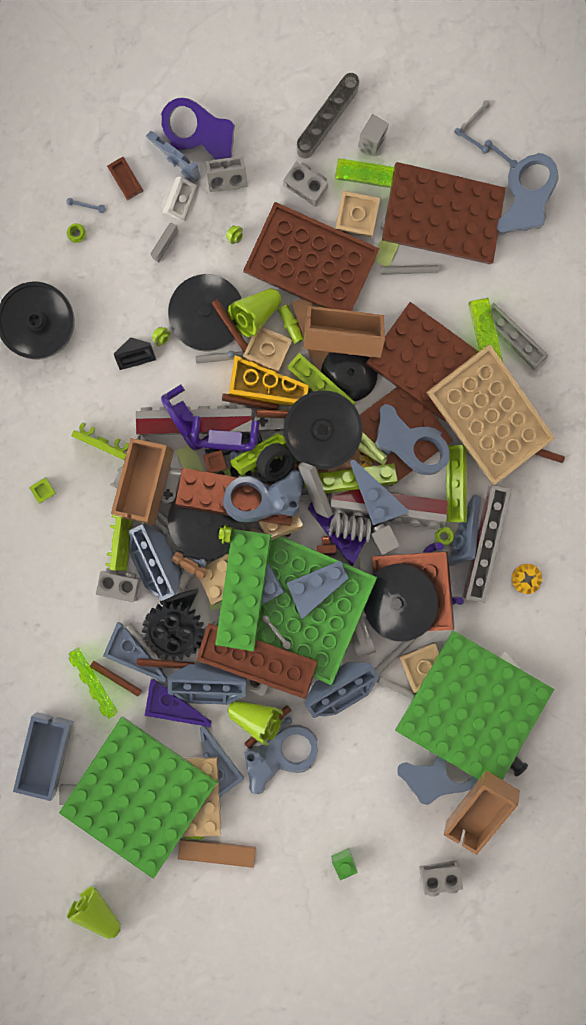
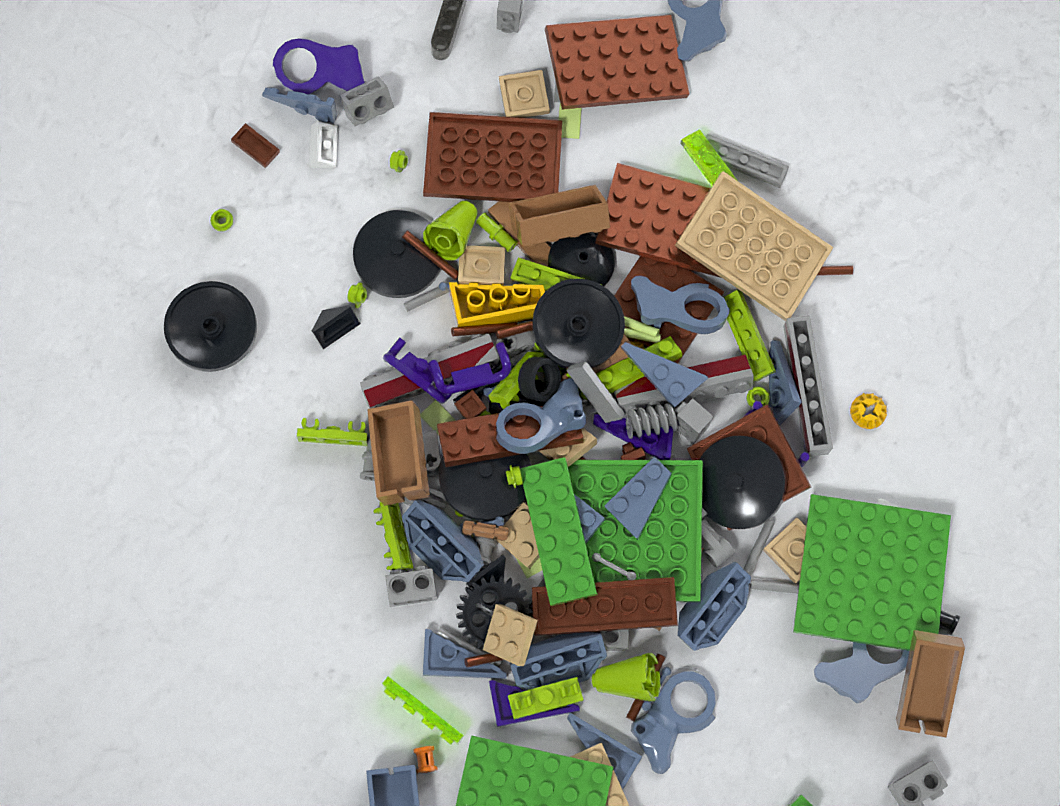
camera: 30 degrees left, 15 degrees down
(42, 490) = (283, 511): lime plate -> none
(85, 713) = (425, 759): none -> orange bush
(101, 208) = (240, 186): sand blue hinge -> none
(115, 678) = (447, 698): copper piece -> none
(164, 242) = (324, 195): light grey tile -> none
(175, 656) = (510, 635): none -> tan plate
(187, 709) = (545, 698): none -> lime plate
(302, 187) = (454, 88): light grey brick -> none
(364, 173) = (515, 51): clear neon green plate -> none
(410, 269) = (602, 132): light grey bar -> none

